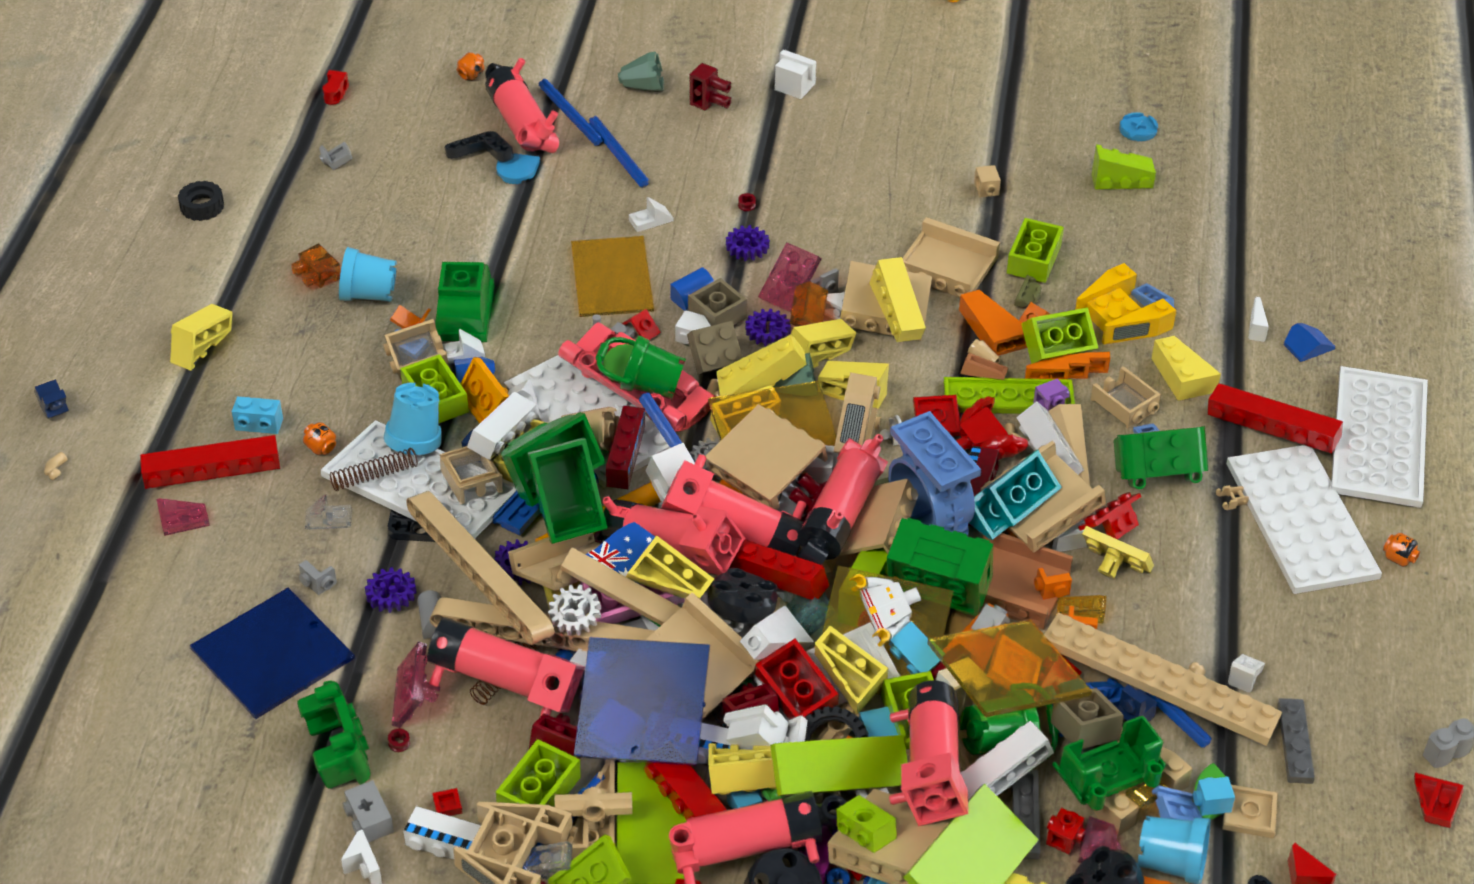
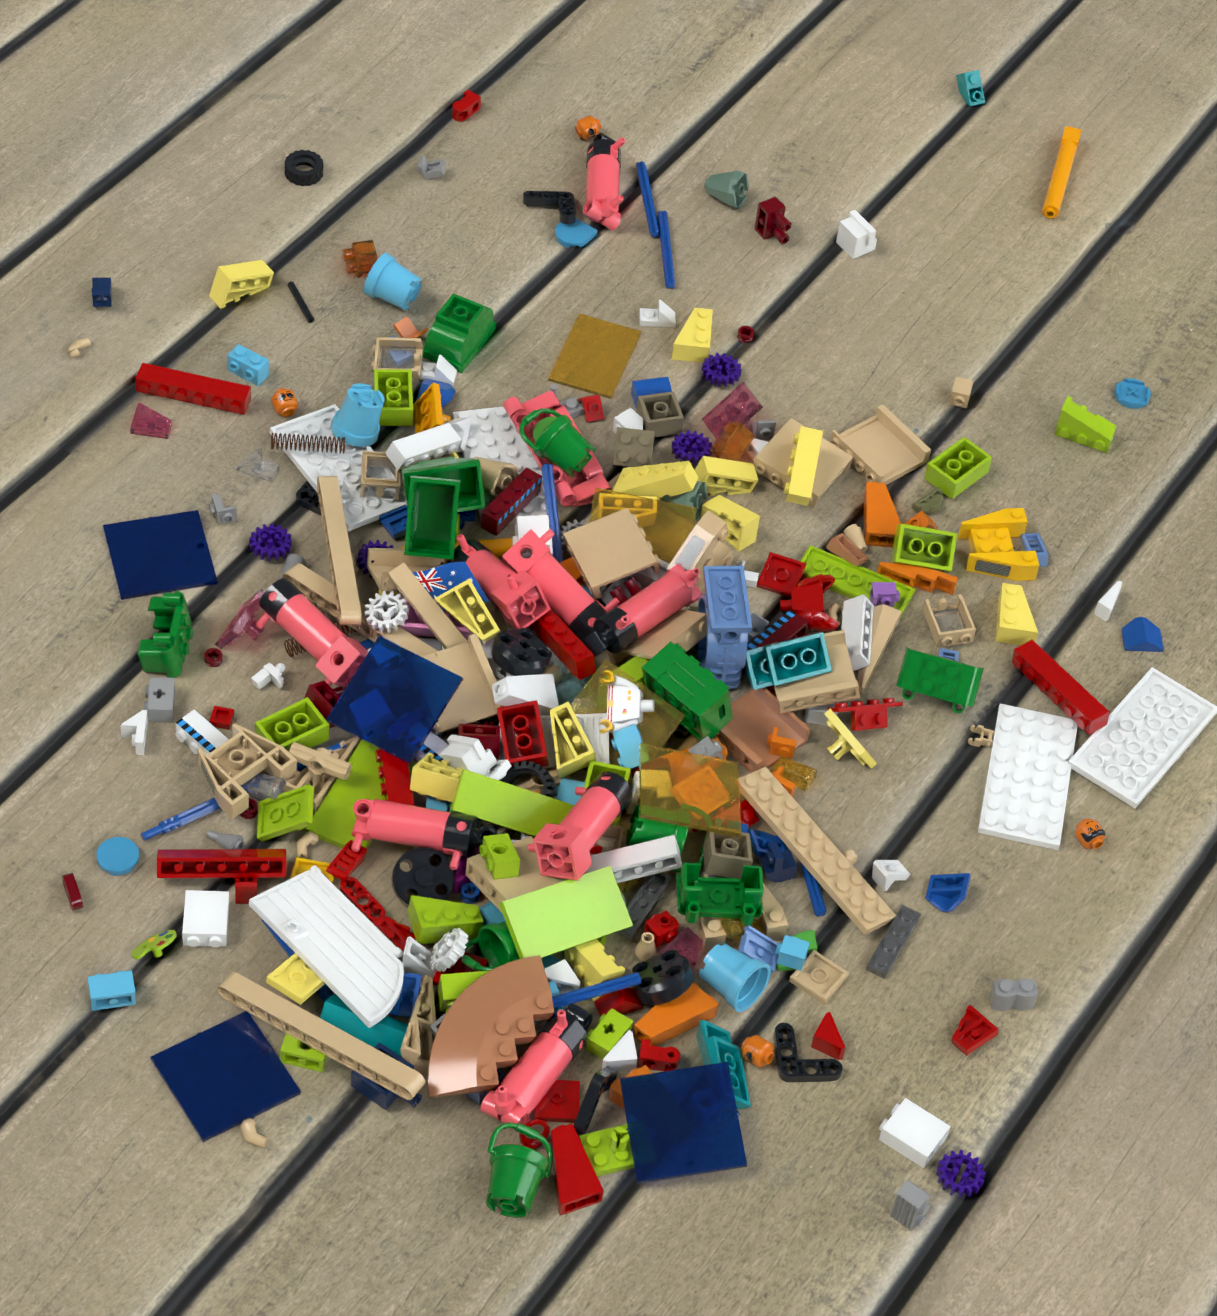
camera: 20 degrees right, 5 degrees up
(275, 332) = (301, 303): none -> black piece
(475, 731) = (268, 674): none -> white piece
(705, 221) = (695, 337): none -> light yellow wedge
(1061, 859) = (646, 947): none -> tan cone
(1313, 664) = (947, 890): none -> blue slope

